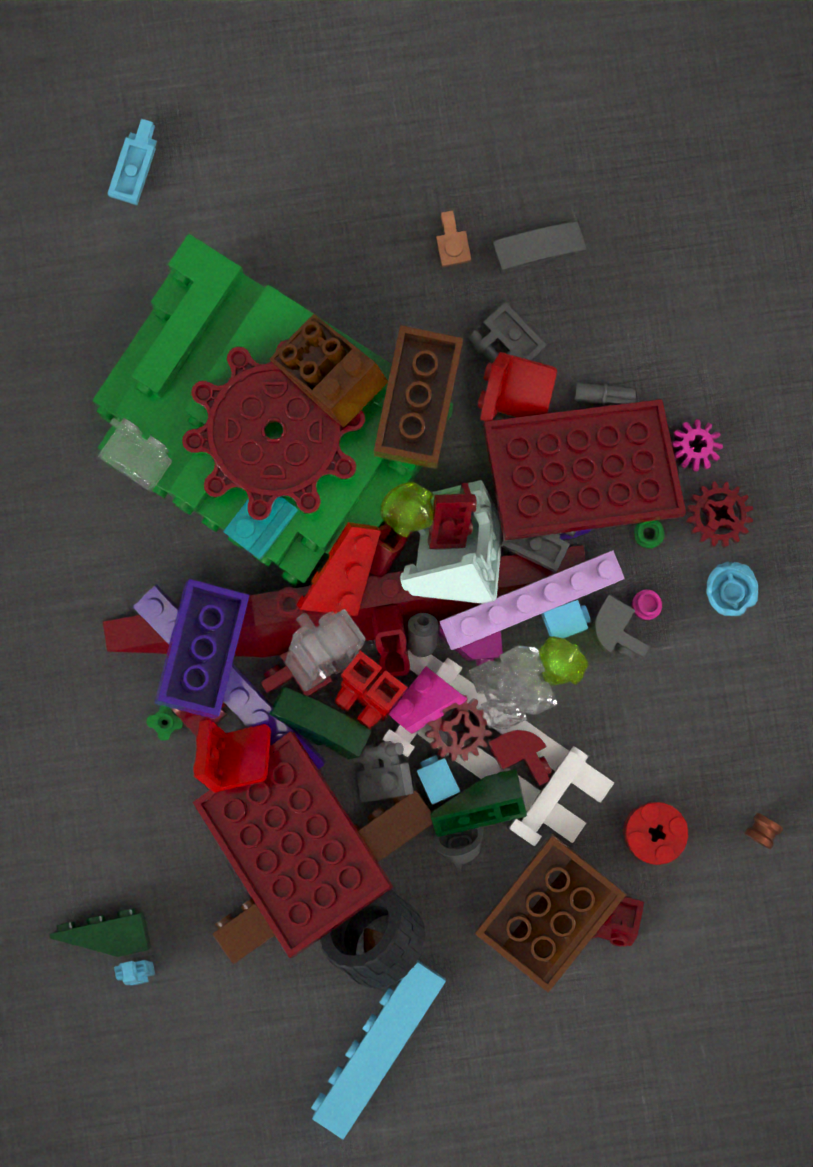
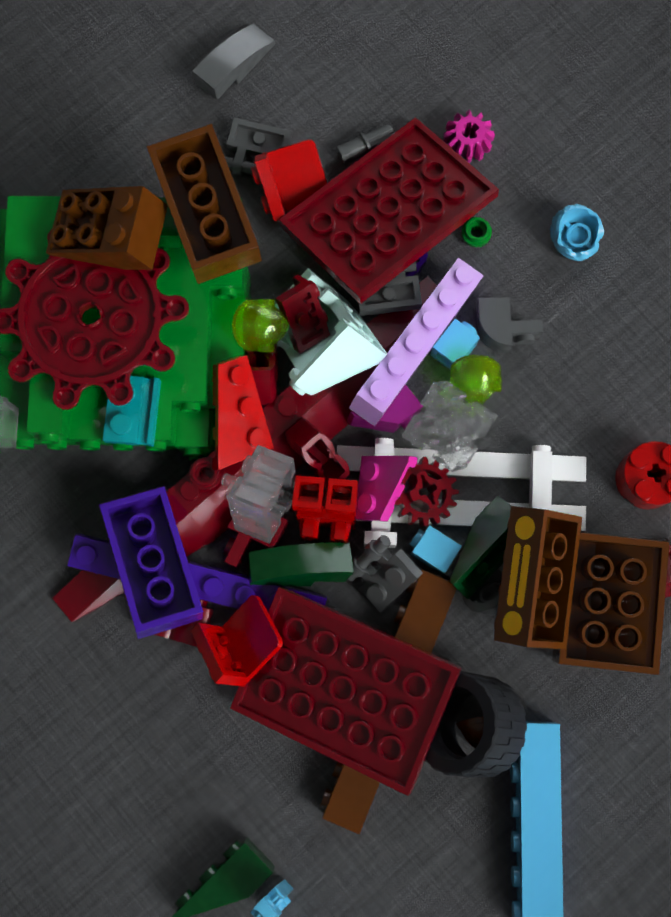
camera: 30 degrees left, 5 degrees down
(164, 731) = (166, 660): green plate -> none
(422, 634) = (341, 430): dark grey brick -> none
(453, 245) = (160, 101): nougat plate -> none
(500, 856) = (537, 578): none -> reddish brown brick
(519, 746) = (492, 472): dark red brick -> none
(647, 604) = (515, 288): dark pink plate -> none
(731, 522) = (537, 174): dark red gear -> none

